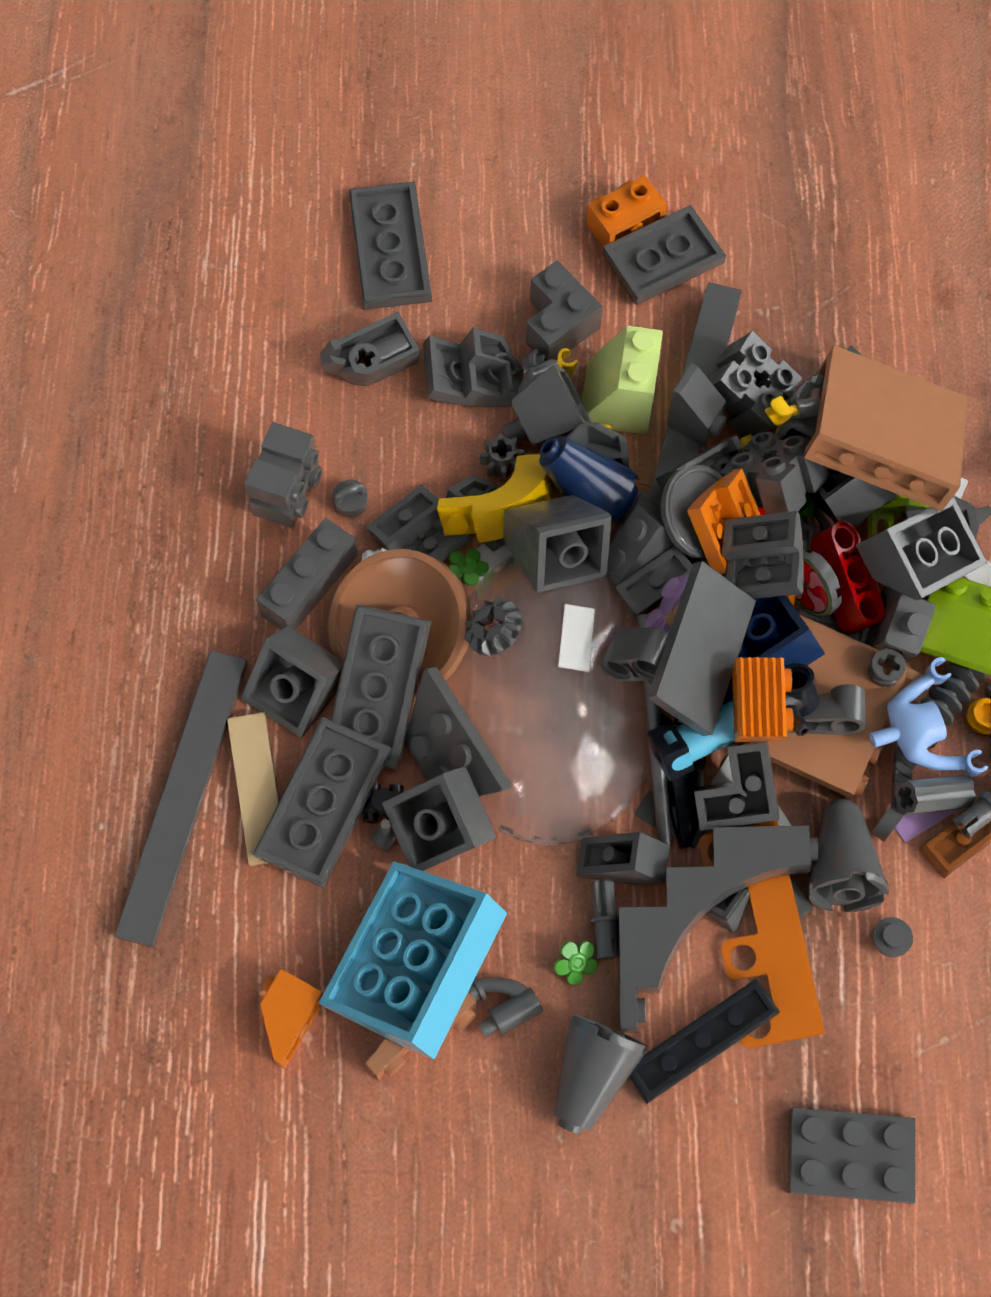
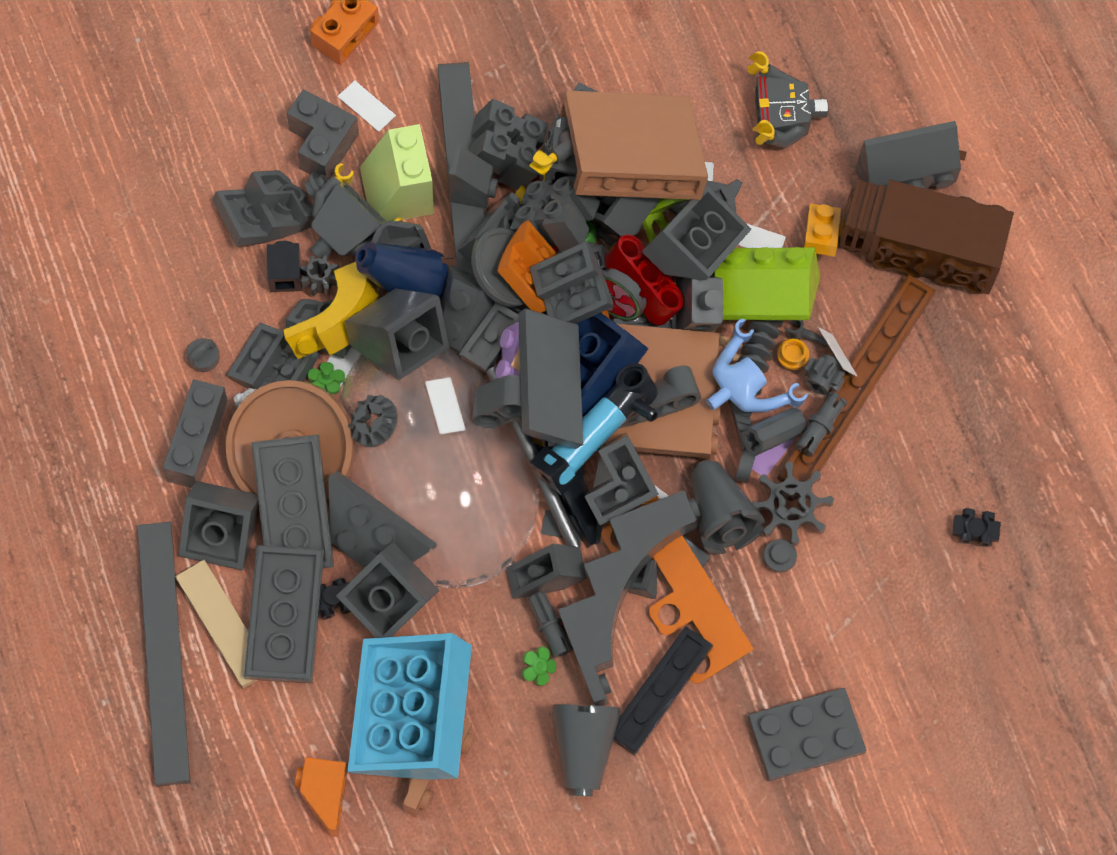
camera: 25 degrees left, 0 degrees up
(283, 475) = (142, 355): dark grey brick -> none
(383, 345) = (180, 212): dark grey piece -> none
(384, 836) = (345, 622): dark grey hand -> none
(390, 245) = (147, 121): dark grey tile -> none
(467, 435) = (284, 267): none -> black brick
(510, 1013) = (506, 720): dark grey plant -> none
(619, 302) = (366, 105): none -> white sticker
(663, 254) = (390, 51): dark grey plate -> none
(760, 699) = (611, 403): orange brick -> none
(876, 670) = (693, 348): dark grey bush -> none
(942, 874) = (790, 490): none -> dark grey gear

